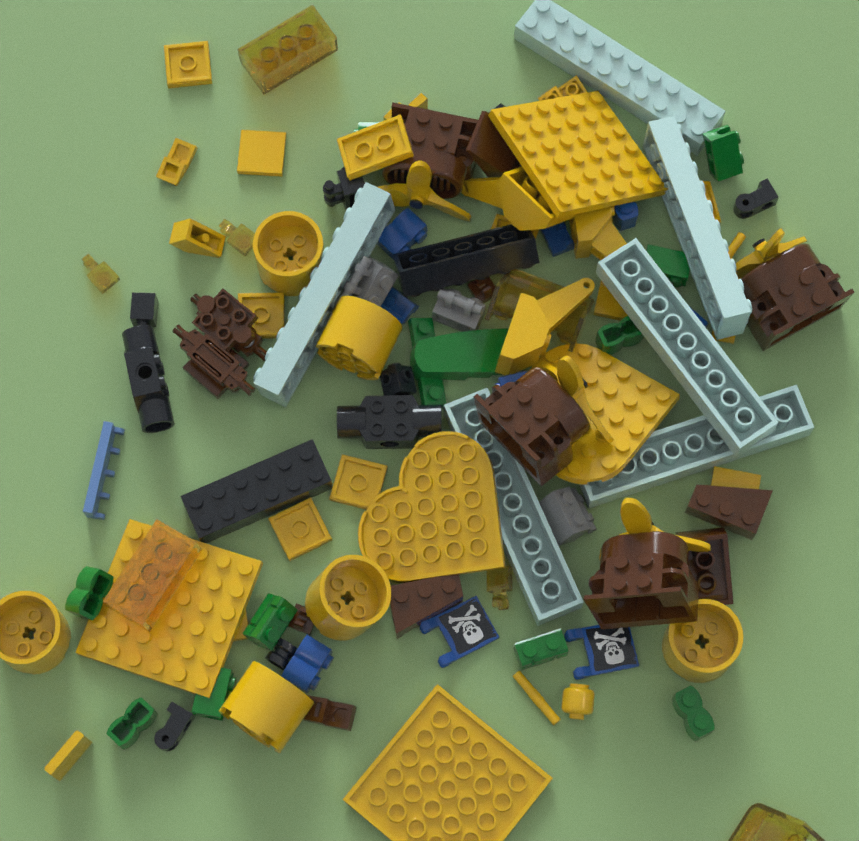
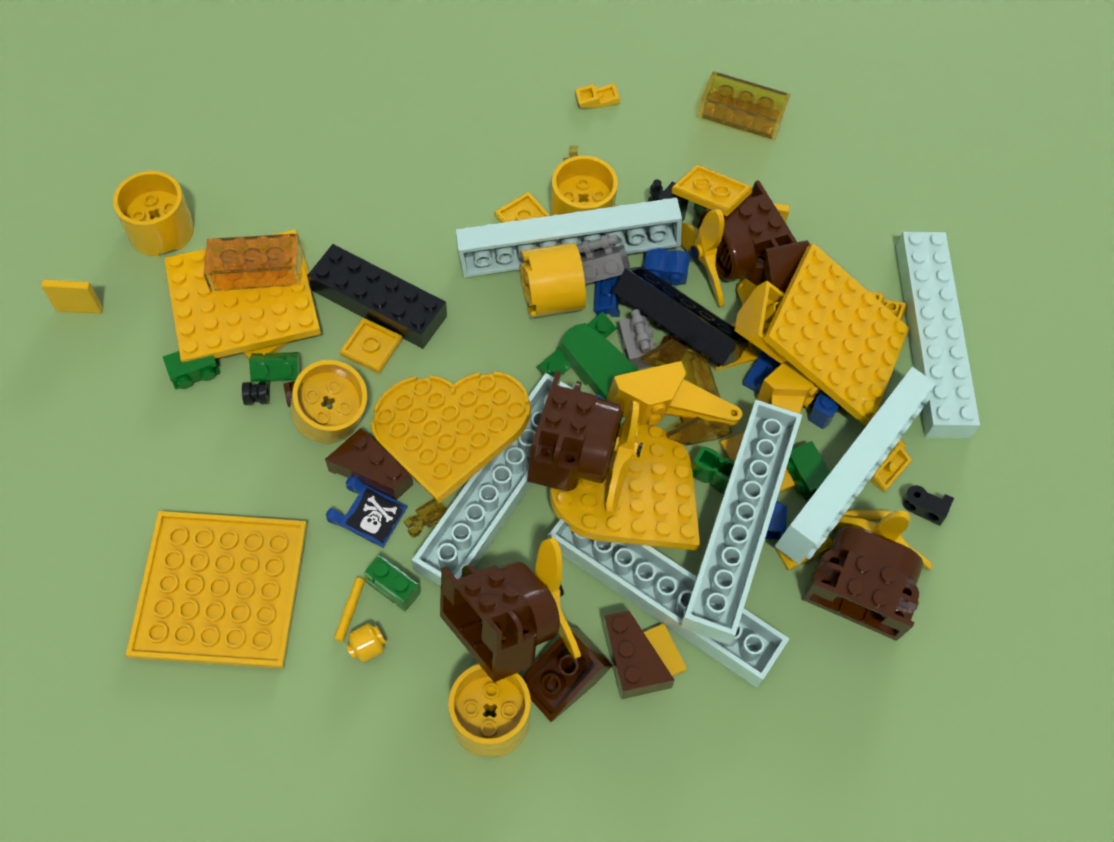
camera: 50 degrees right, 10 degrees down
(88, 595) = (222, 230): green brick -> none
(100, 275) = (472, 102): clear yellow plate -> none
(100, 471) = (319, 188): medium blue hinge -> none
(127, 728) = (127, 324): green brick -> none
(144, 309) = (466, 141): black brick -> none
(147, 379) = (410, 170): black brick -> none
(174, 729) = (144, 357): black leg -> none
(188, 64) = (677, 60): yellow tile -> none
(197, 238) = (548, 140): yellow slope -> none
(212, 364) = (458, 204): reddish brown piece -> none
(228, 323) = (495, 192): reddish brown piece -> none
(261, 153) = (651, 141): yellow tile -> none
(266, 706) = (195, 401): yellow brick -> none
(307, 664) = (258, 416): blue brick -> none
(331, 713) = (229, 458): reddish brown slope -> none
(357, 482) = (440, 360): yellow tile -> none
(388, 421) = (503, 346): black brick -> none
(398, 380) = (542, 334): black brick -> none
(567, 515) = (524, 526): light grey brick -> none
(605, 649) = (430, 639): flag -> none
(689, 707) = (416, 755): green brick -> none
(723, 152) = (943, 447): green brick -> none

